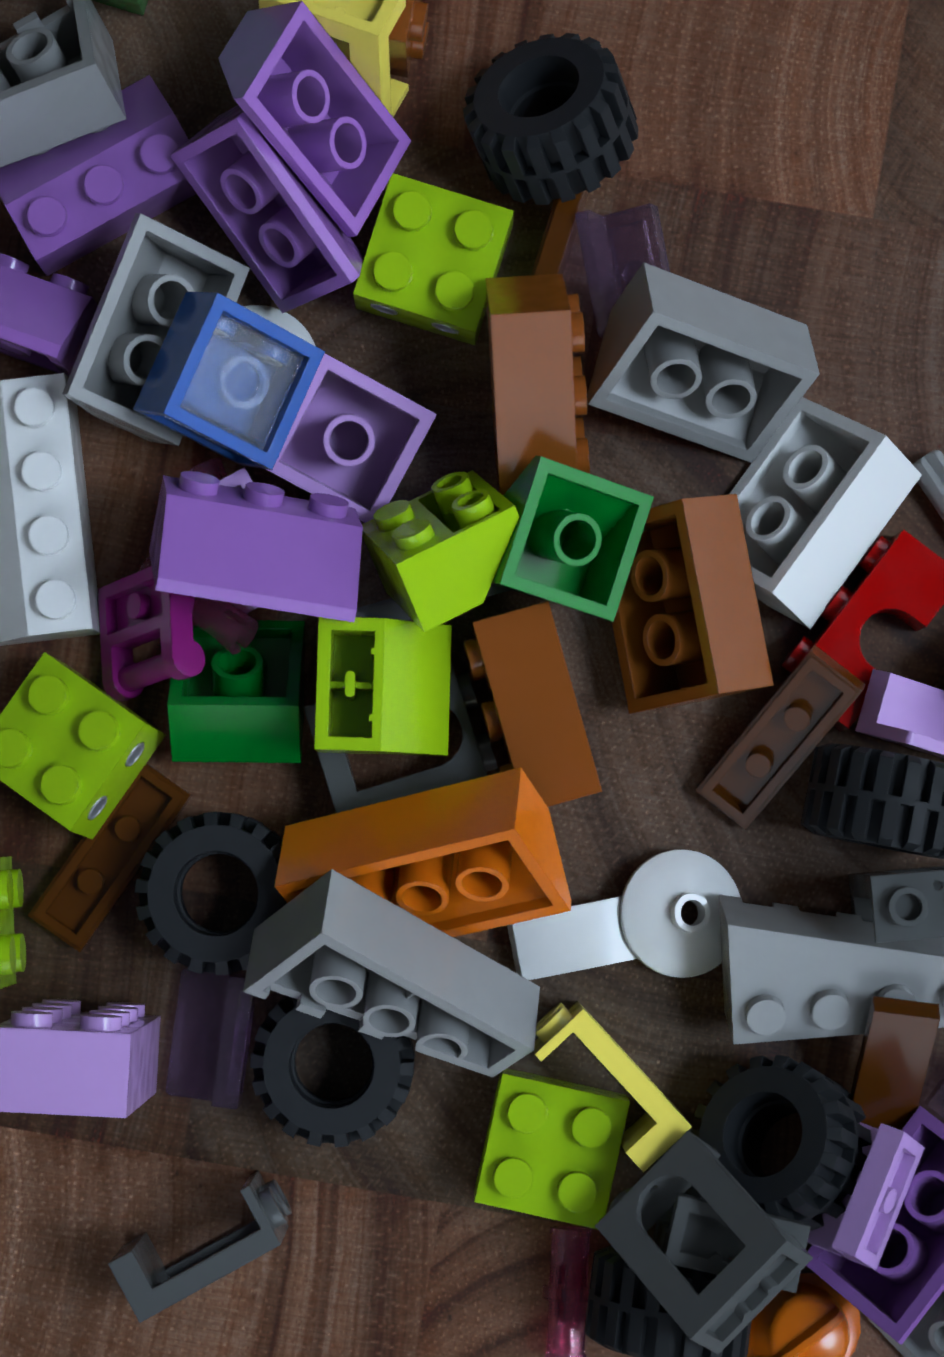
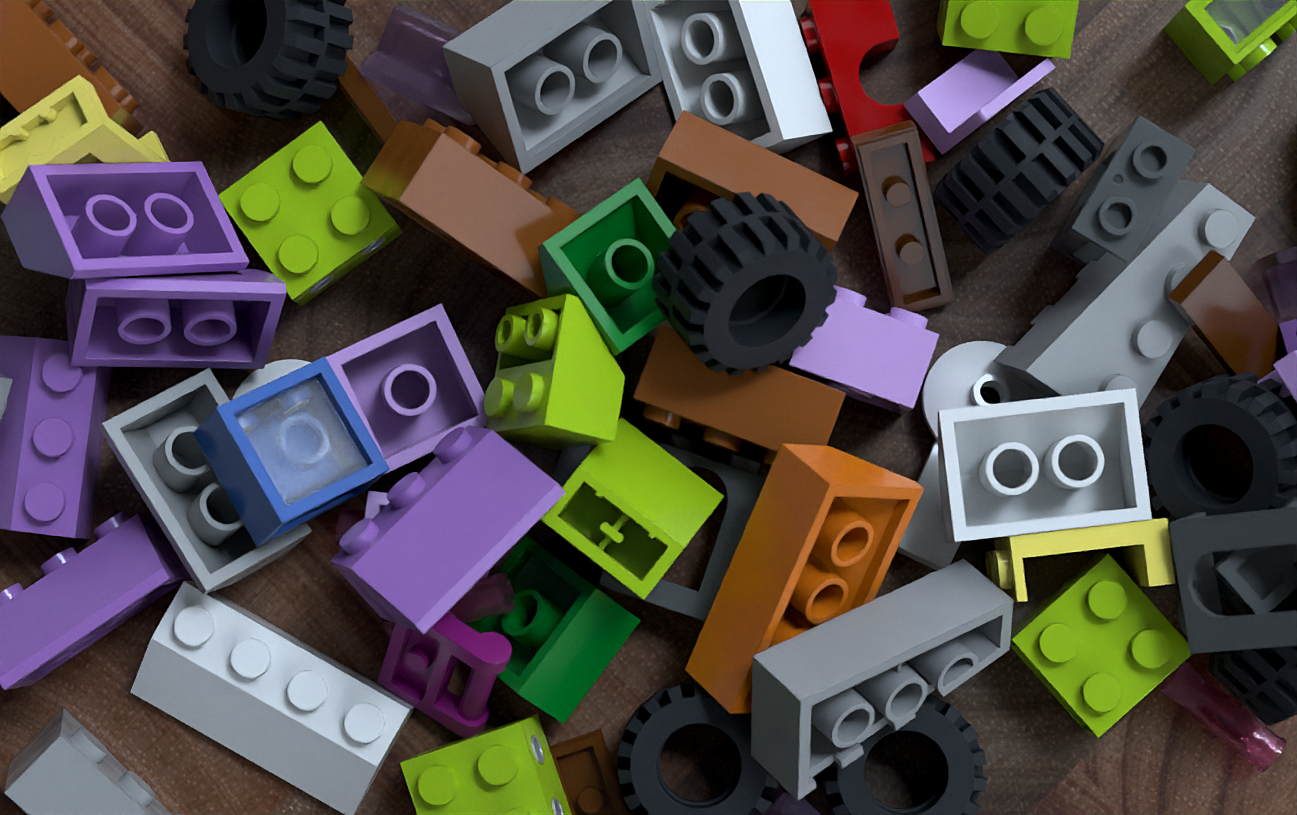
camera: 50 degrees left, 0 degrees up
(628, 643) = (745, 283): none -> black tyre
(648, 780) = (868, 353): none -> lavender brick
(661, 994) = (1041, 465): none -> white slope

